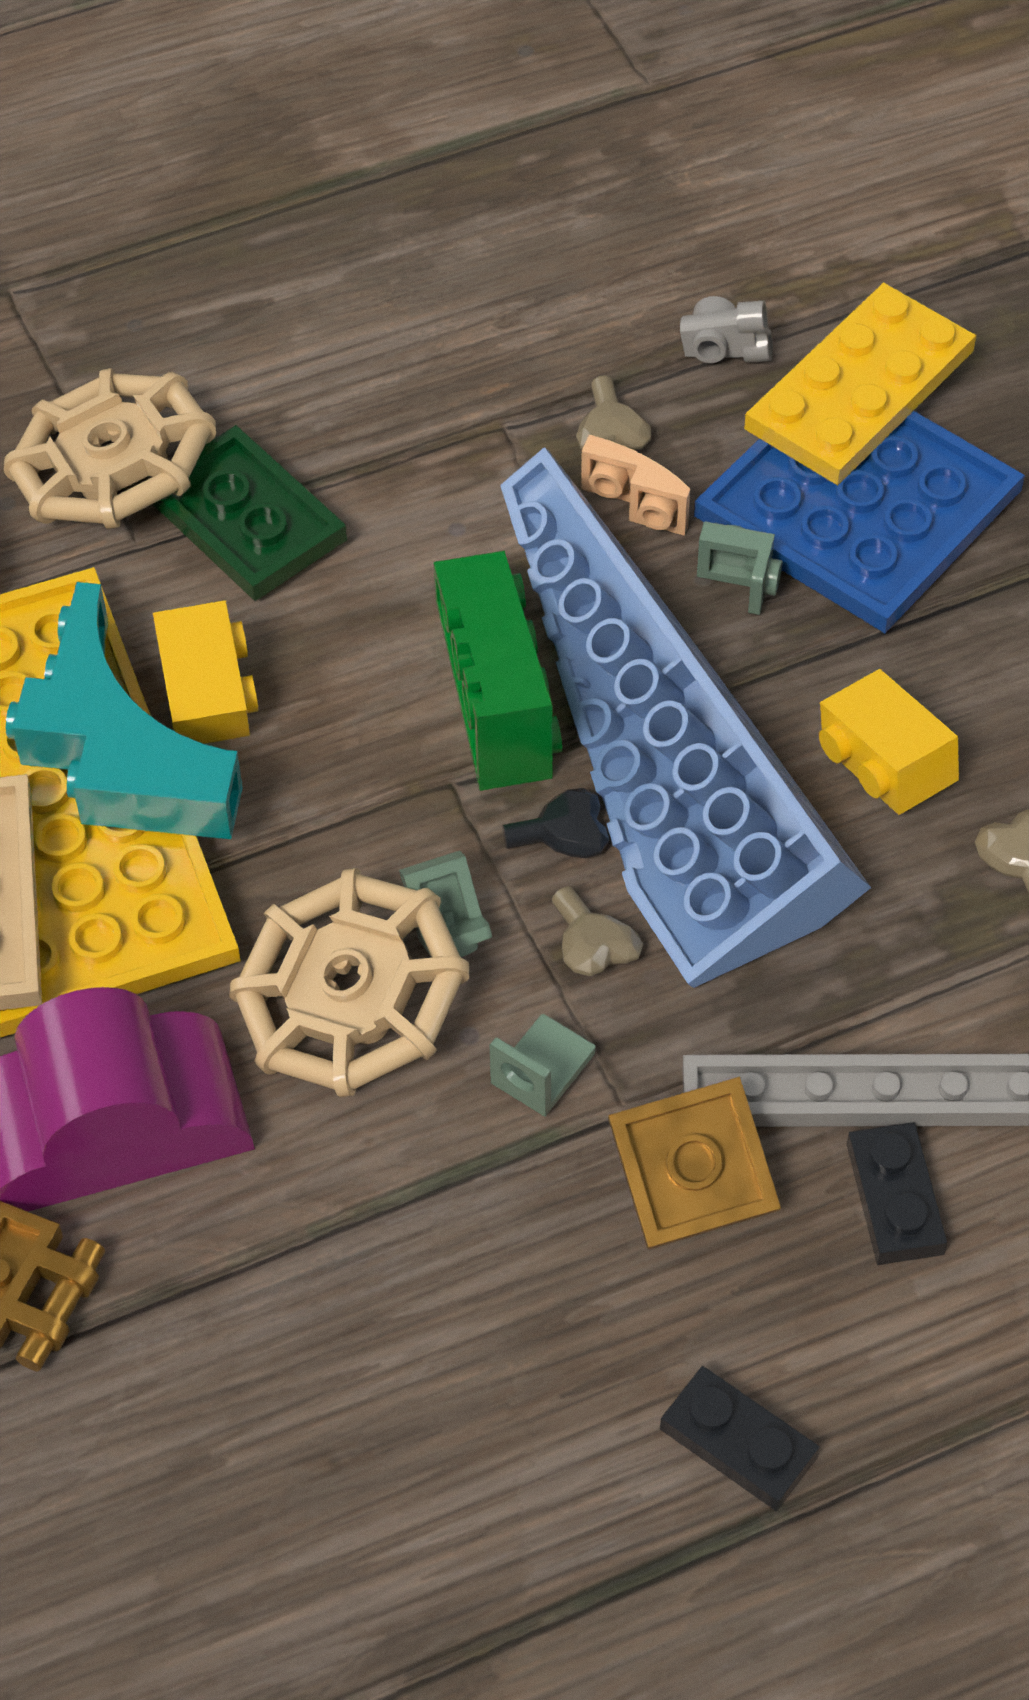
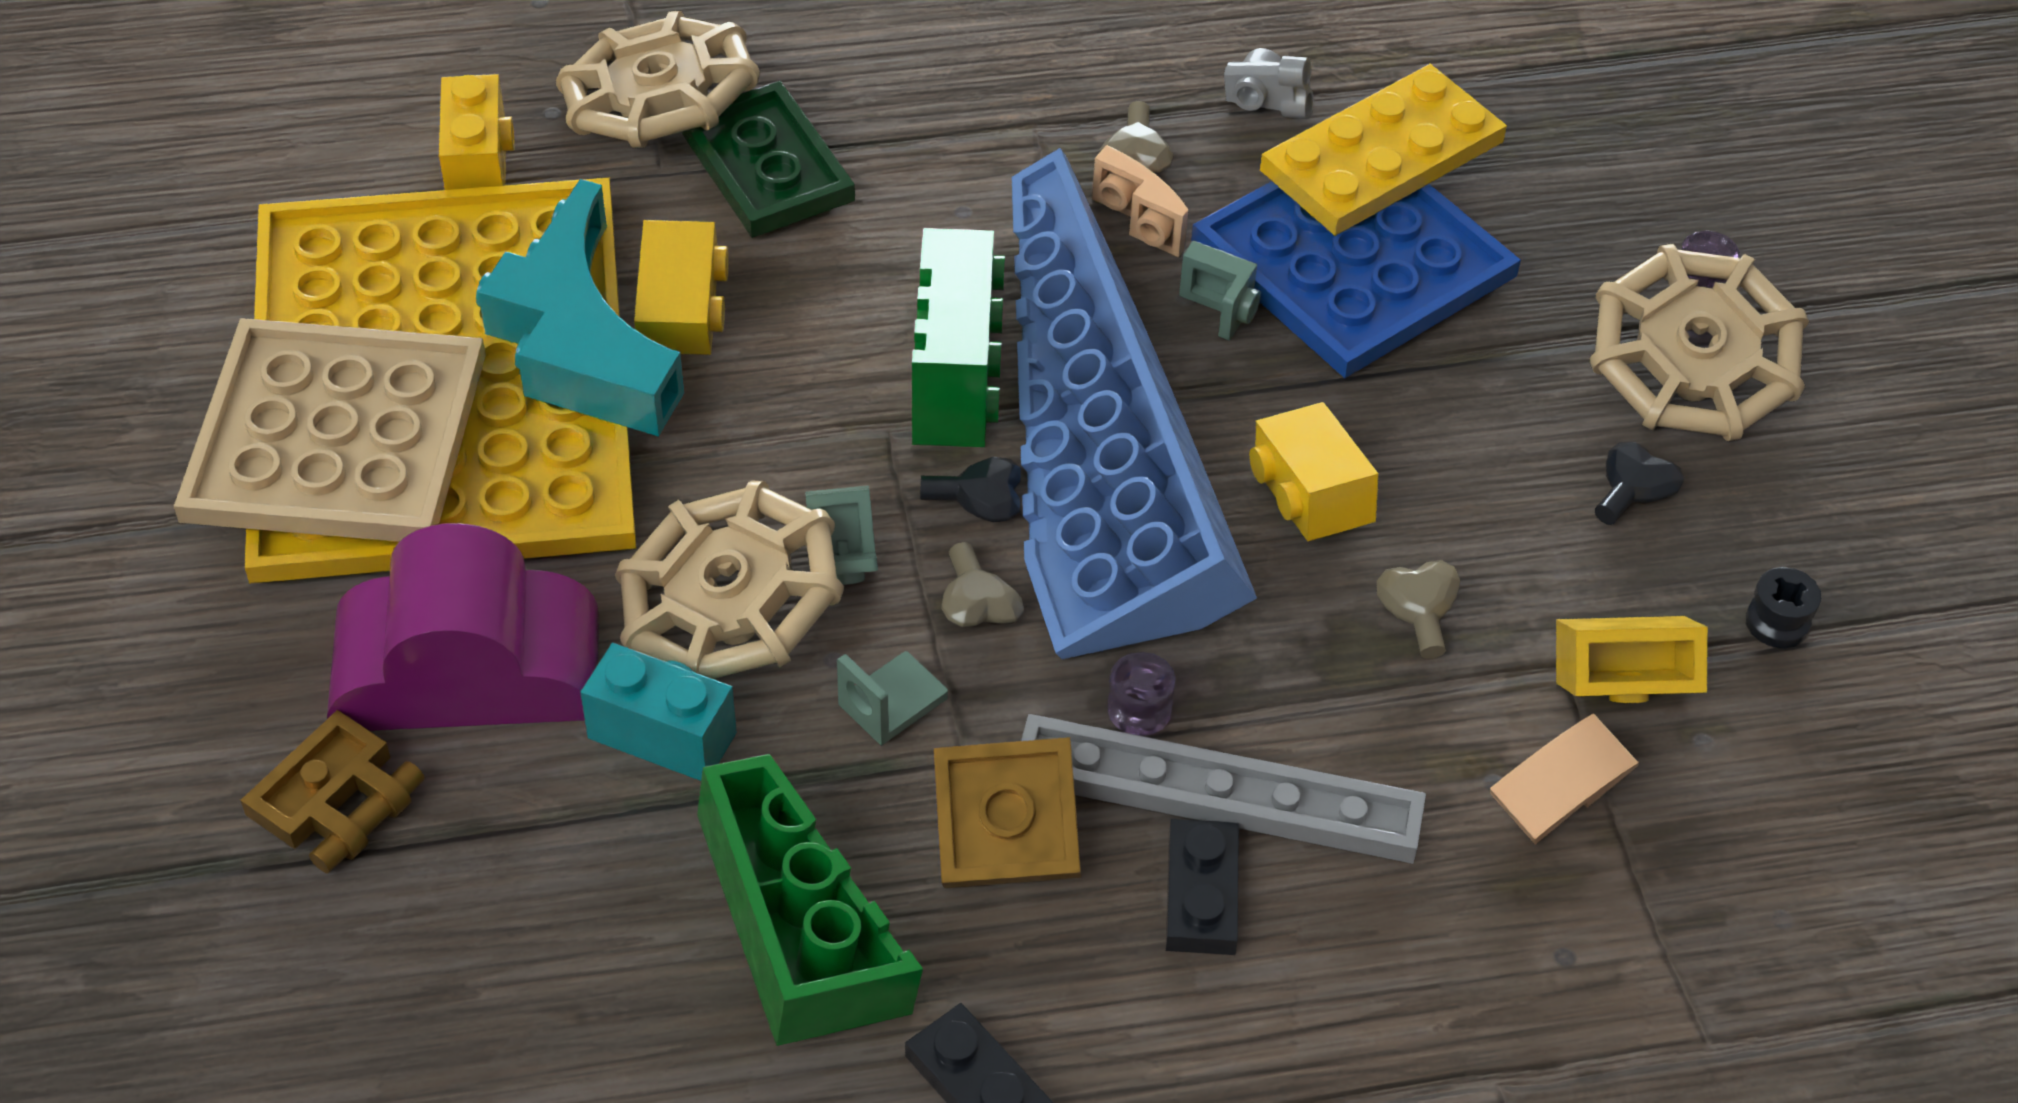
camera: 10 degrees right, 5 degrees down
(321, 1132) = (658, 711): none -> teal brick
(525, 1316) = (803, 923): none -> green wedge
(787, 992) = (1149, 679): none -> clear purple wheel

